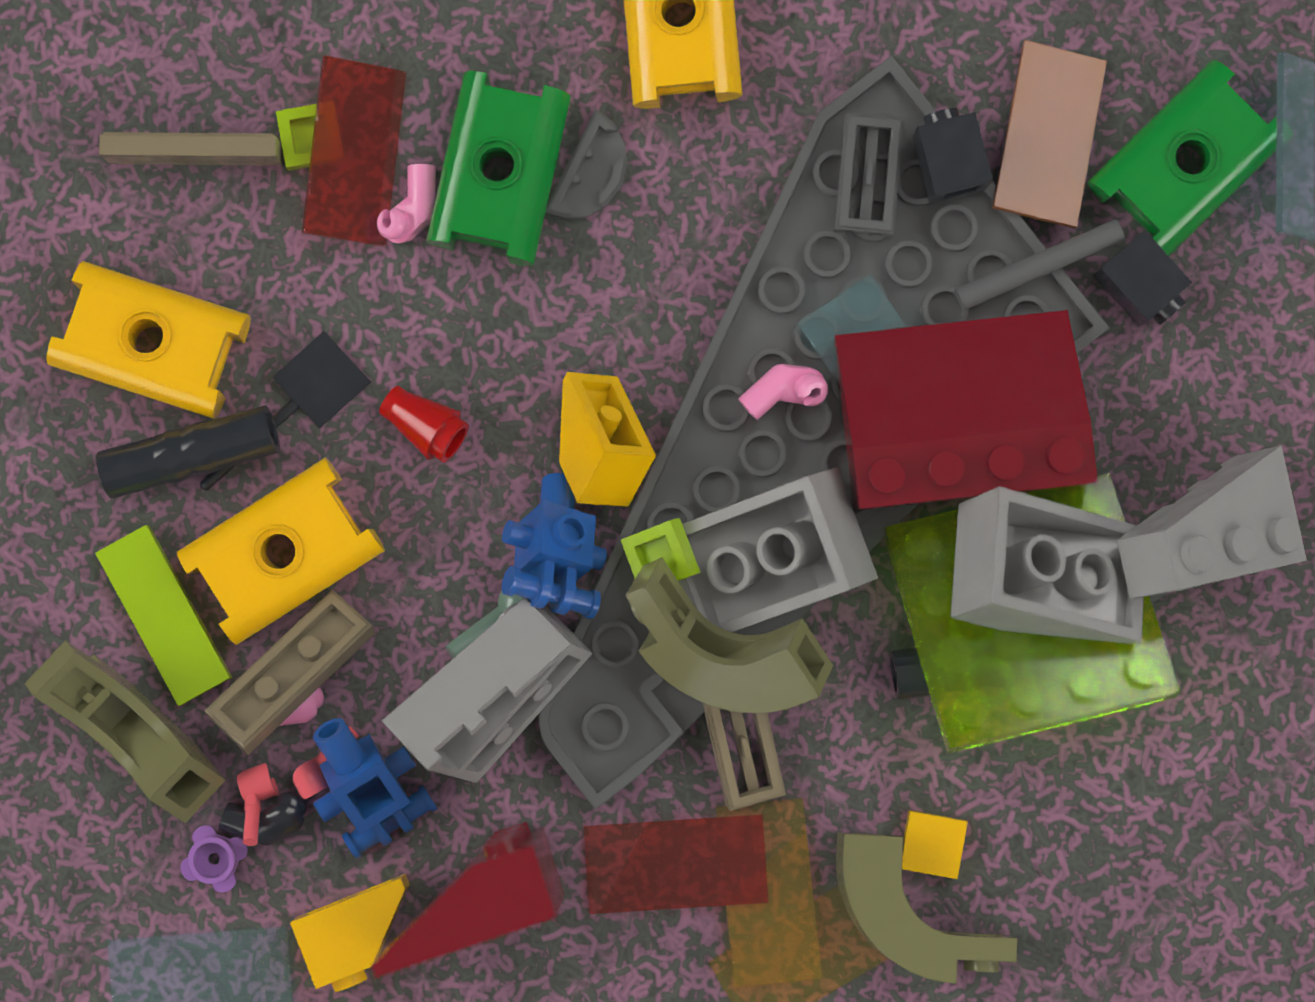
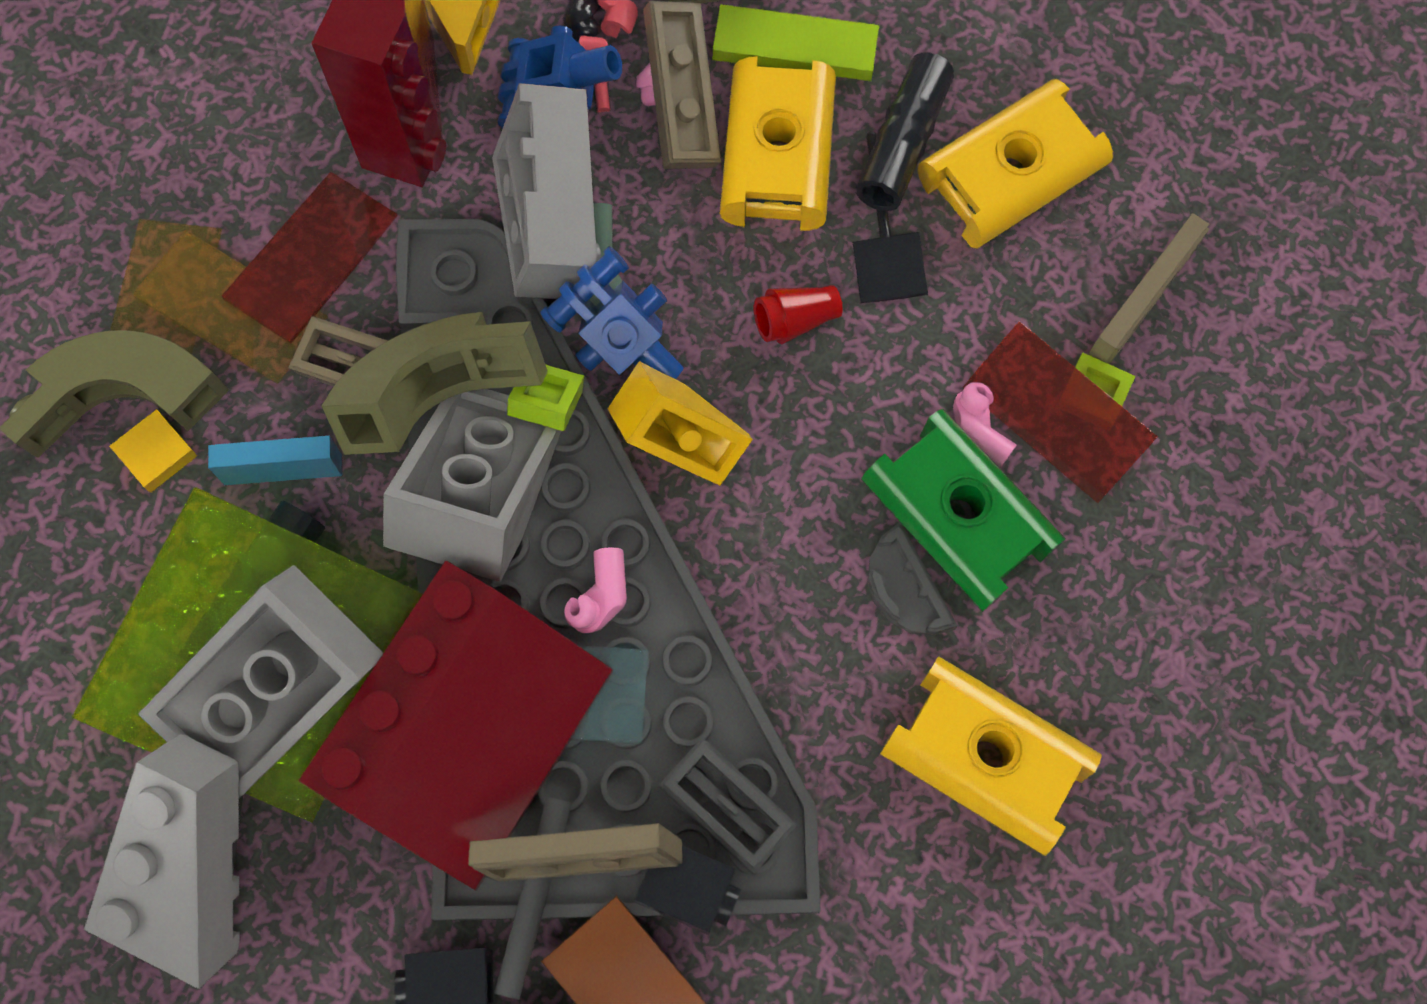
camera: 125 degrees right, 15 degrees down
(869, 733) = (275, 460): none -> dark azure tile
(995, 244) = (576, 853): none -> dark tan tile

